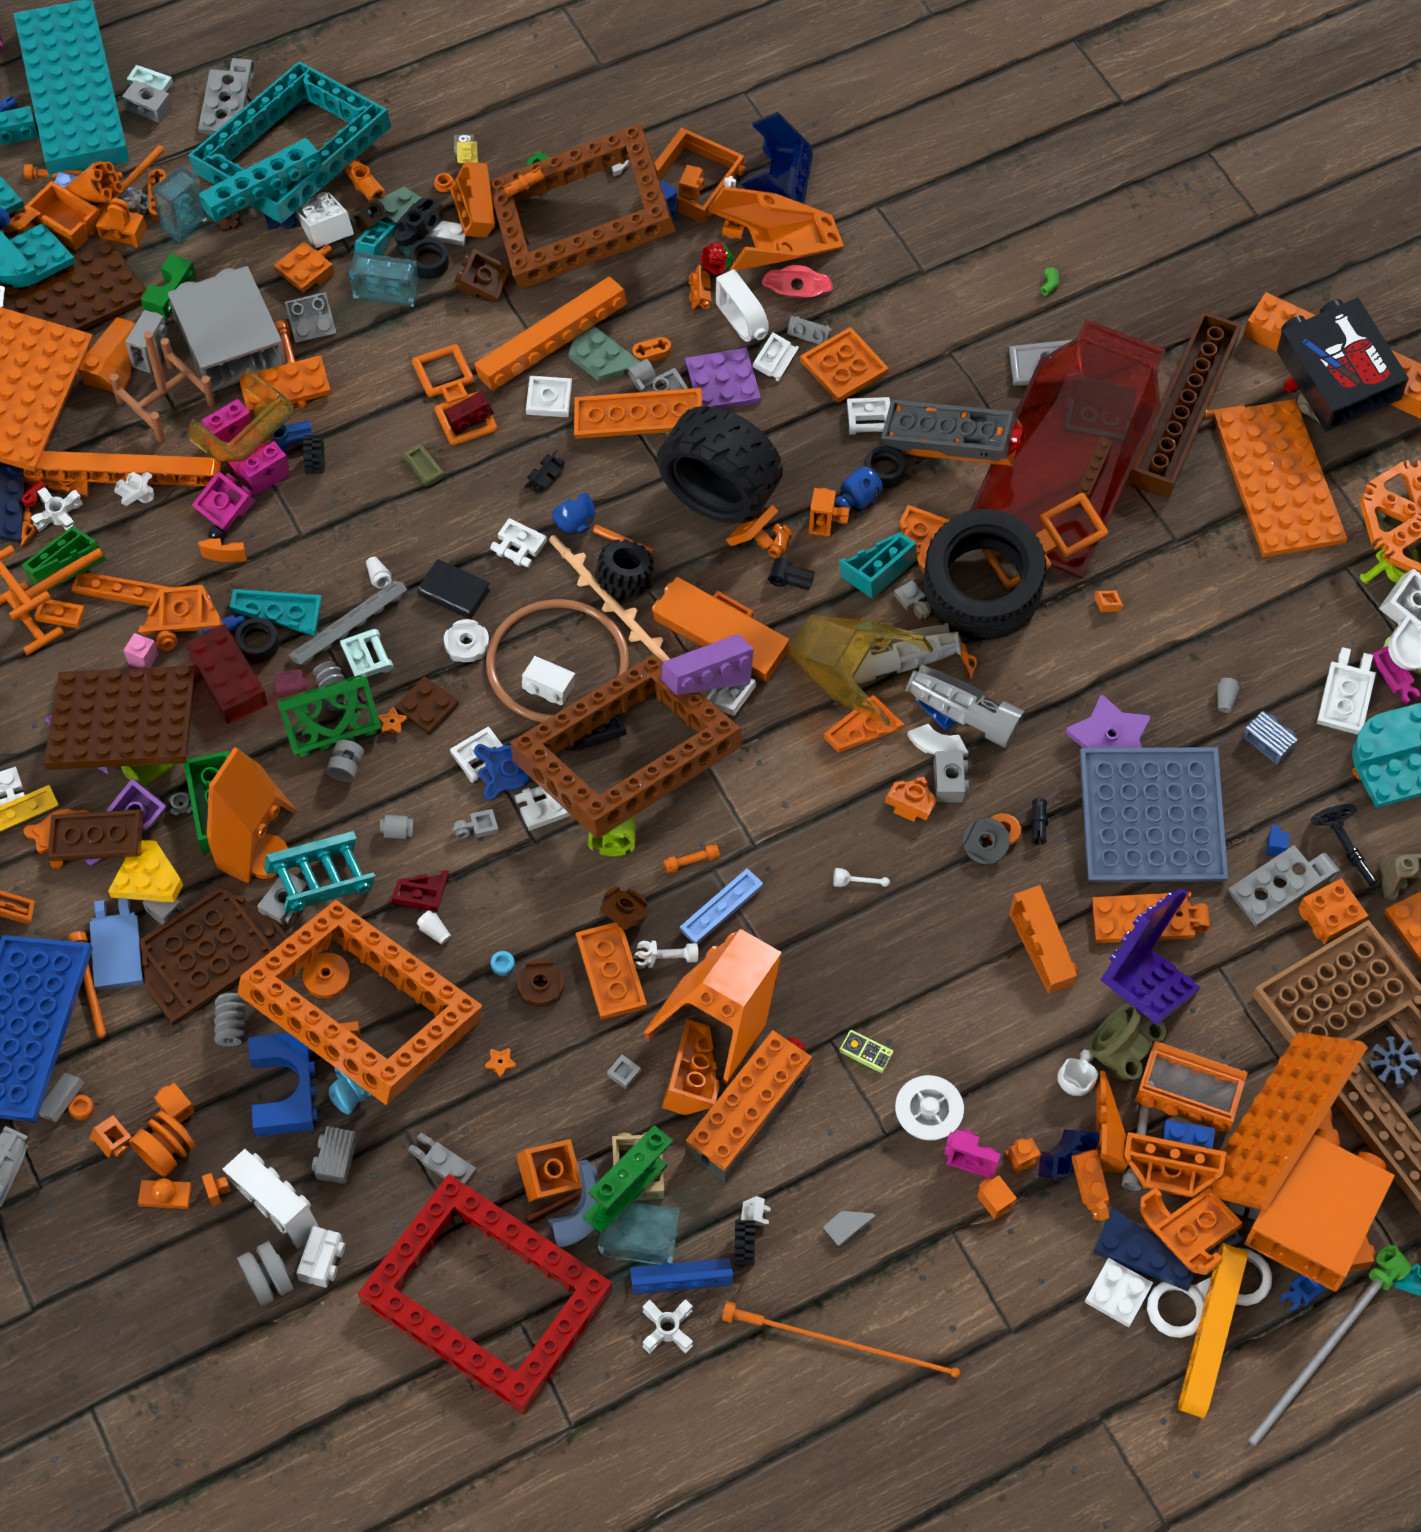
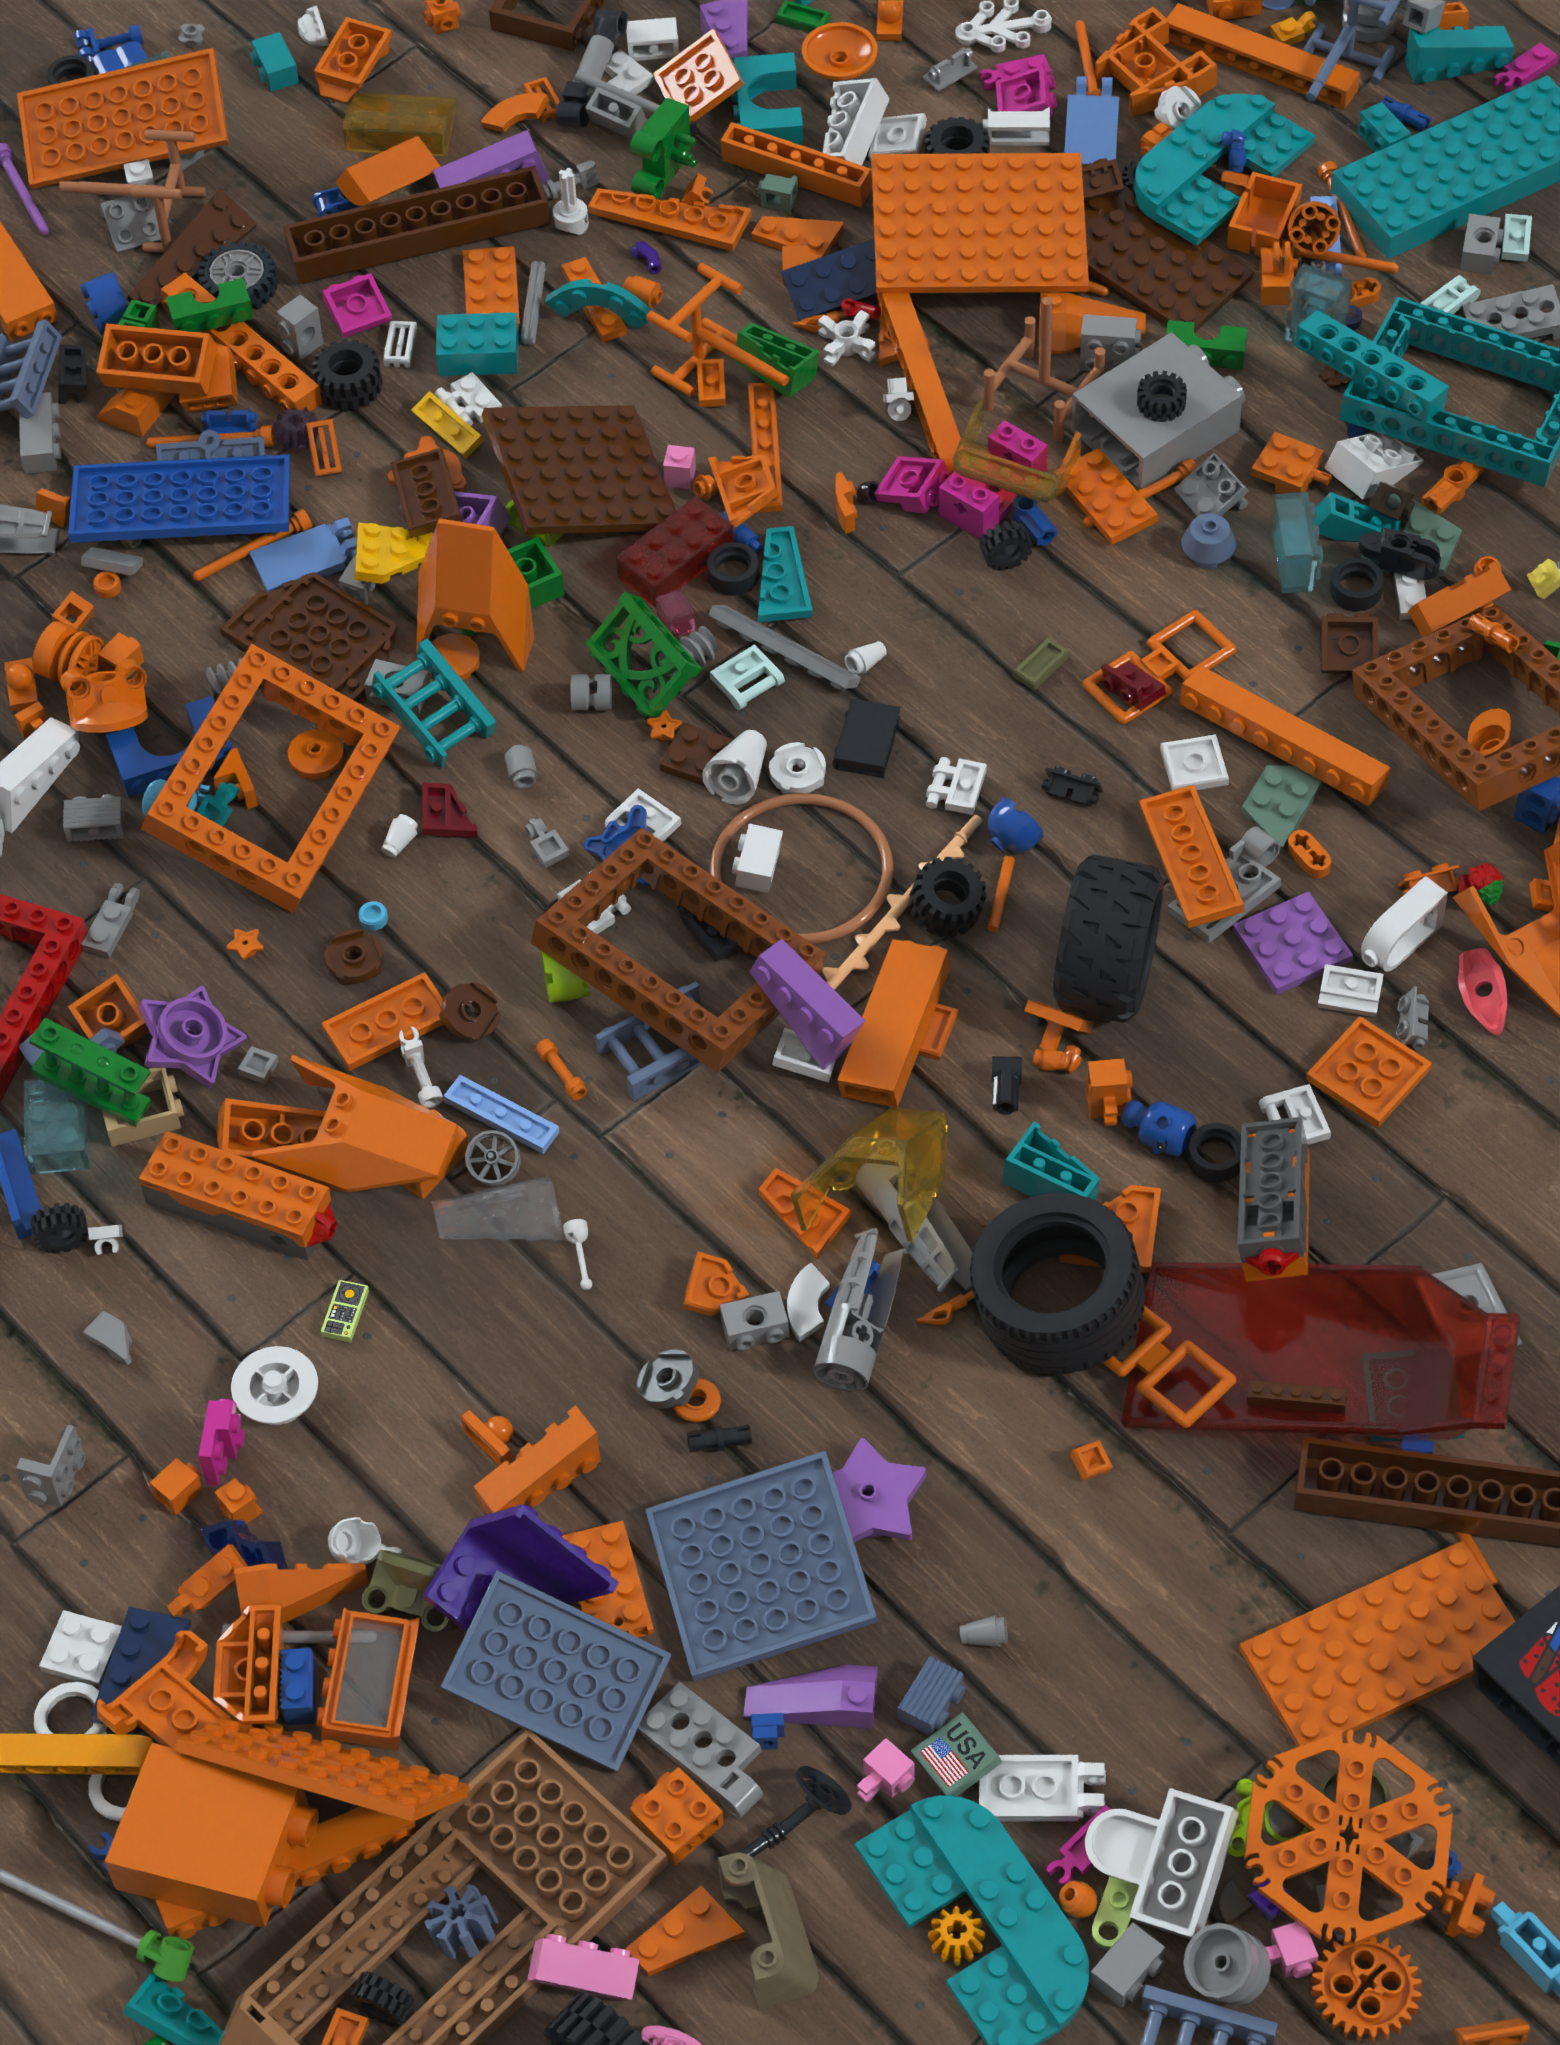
camera: 80 degrees right, 5 degrees down
(188, 133) = (1449, 296): none -> light aqua plate
(230, 1116) = (106, 698): none -> orange piece
(233, 301) = (1161, 407): none -> black tyre
(355, 333) = (1208, 541): none -> sand blue cone
(456, 675) = (736, 768): none -> white cone
(588, 1112) = (189, 1035): none -> medium lavender plate
(591, 214) = (1490, 732): none -> orange piece
(712, 786) = (666, 1066): none -> sand blue fence
(764, 917) = (492, 1158): none -> light grey wheel
(813, 916) = (502, 1213): none -> clear wedge
(971, 1274) = (55, 1481): none -> light grey bracket
(1004, 969) = (490, 1436): none -> orange tile
(1219, 958) = (556, 1671): none -> sand blue plate
(1254, 801) = (822, 1697): none -> medium lavender wedge
(1318, 733) = (956, 1756): none -> sand green tile
(1321, 776) = (886, 1769): none -> bright pink brick

